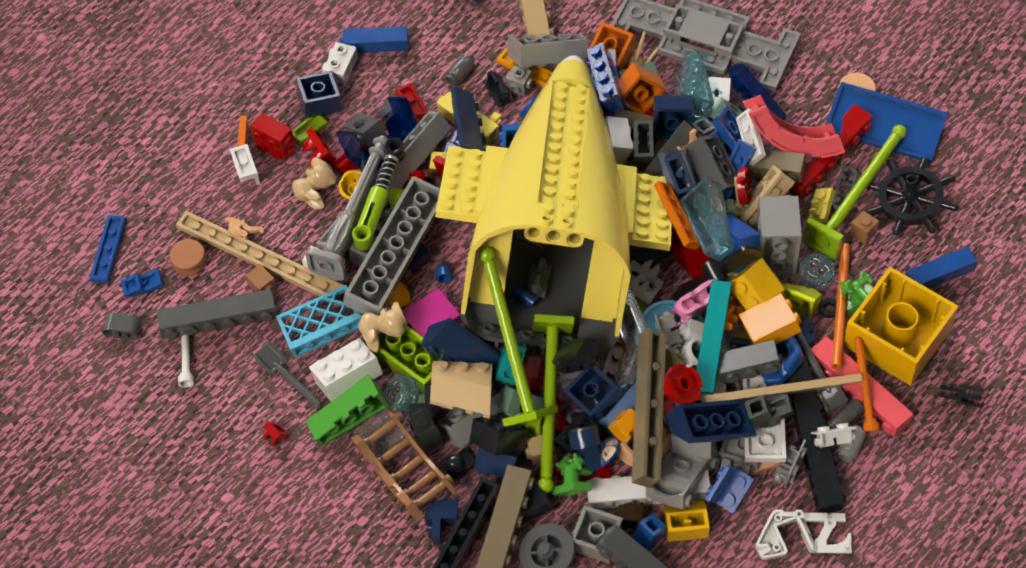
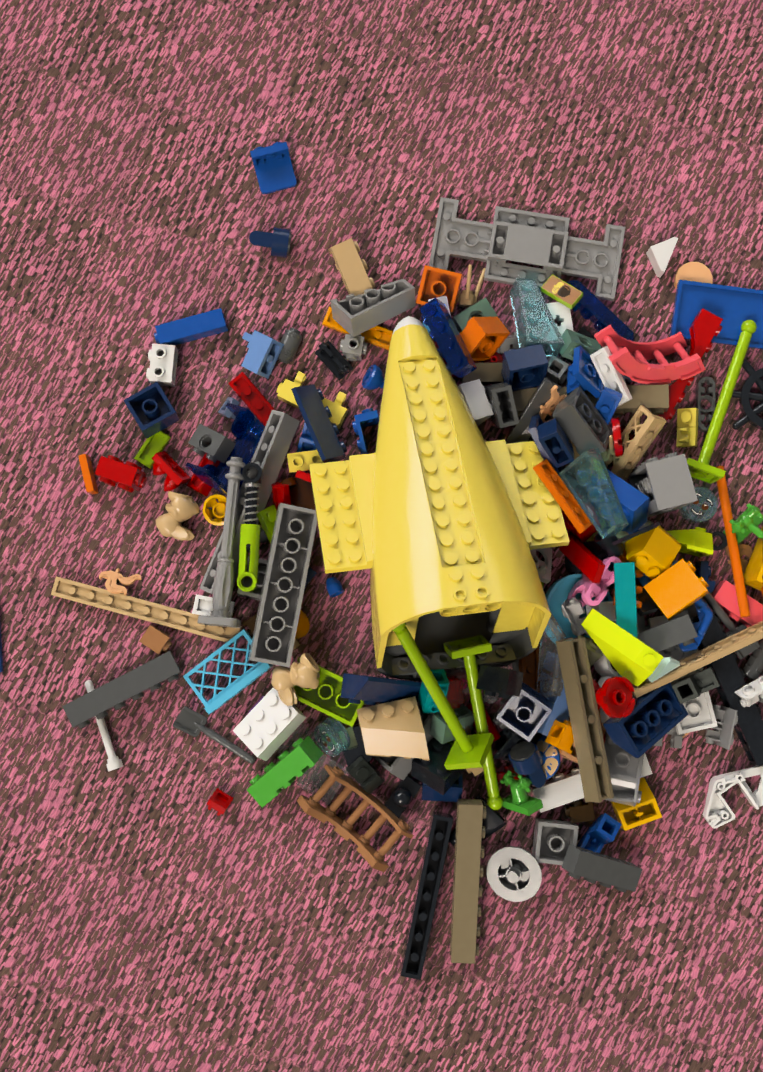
camera: 15 degrees left, 25 degrees up
(122, 326) = (32, 721): dark grey beam -> none
(137, 285) = (37, 666): blue slope -> none
(188, 257) = (74, 627): nougat head -> none
(244, 163) = (100, 510): white panel -> none
(430, 310) = (336, 642): dark pink brick -> none
(433, 68) = (261, 354): none -> medium blue hinge
(439, 514) = (401, 852): dark blue brick -> none
(686, 279) = (583, 559): none -> red tile
(703, 354) = (624, 651): none -> neon yellow wedge
(725, 69) = (562, 291): none -> tile
(730, 488) = (670, 765): blue bracket -> none
(736, 382) = (665, 666): none -> light aqua slope
(830, 60) = (660, 255): none -> white slope
(864, 227) = (735, 445): medium nougat brick -> none

